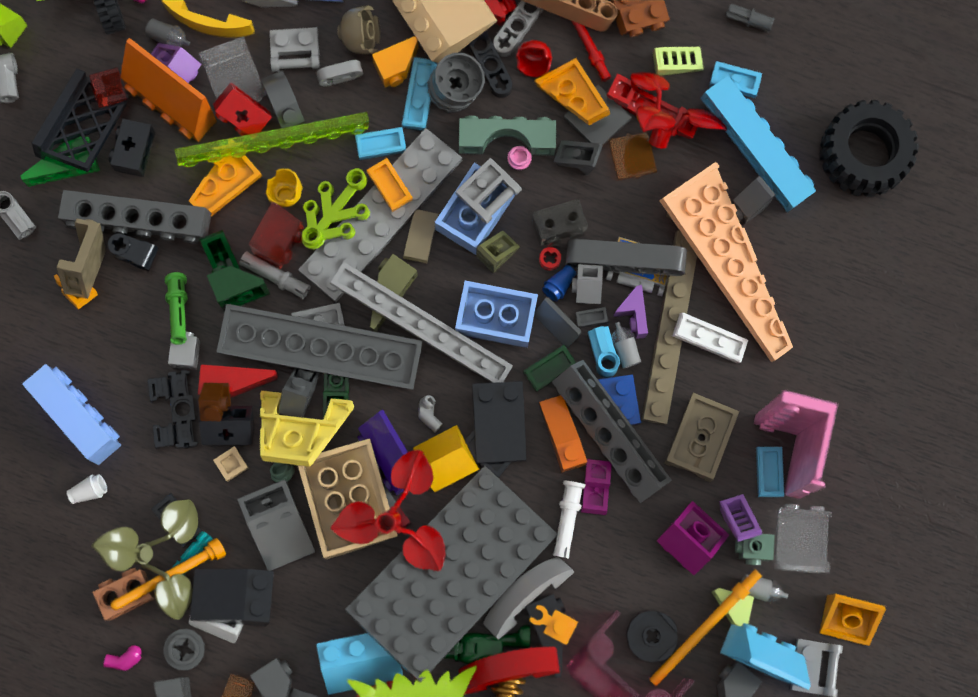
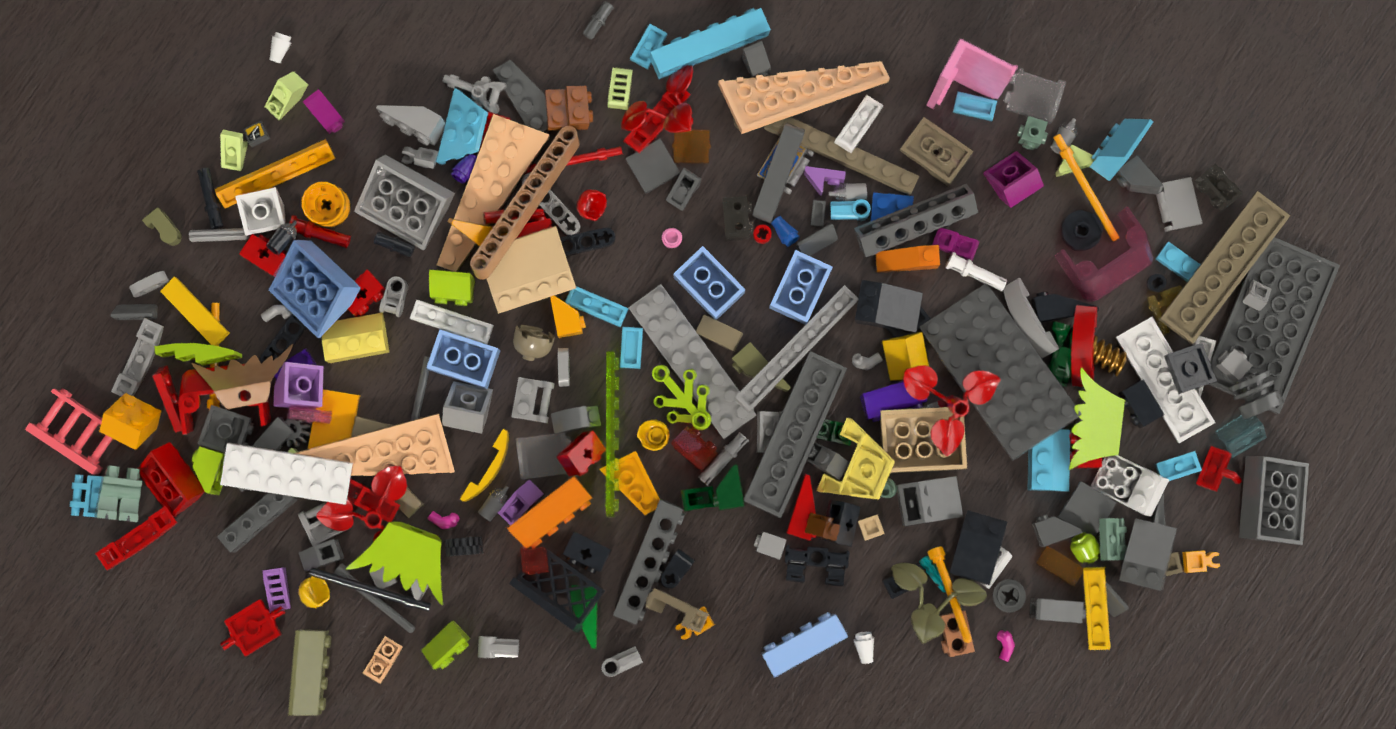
camera: 70 degrees left, 5 degrees up
(176, 298) = (726, 542): bright green pin -> none
(389, 184) = (672, 347): light orange tile -> none
(457, 69) = (599, 262): dark grey wheel -> none
(482, 184) = (696, 271): light grey plate -> none
(496, 251) = (746, 274): olive slope -> none
(536, 134) = (658, 218): sand green arch -> none
(549, 368) = (851, 256): dark green tile -> none
(557, 626) = (1059, 299): light orange plate -> none
(574, 91) = (628, 178): light orange wing -> none
(588, 284) = (793, 208): light grey brick -> none
(735, 505) = (995, 140): medium lavender slope -> none
(813, 653) = (1123, 112): light grey plate -> none
(851, 619) = (1103, 75): light orange slope -> none

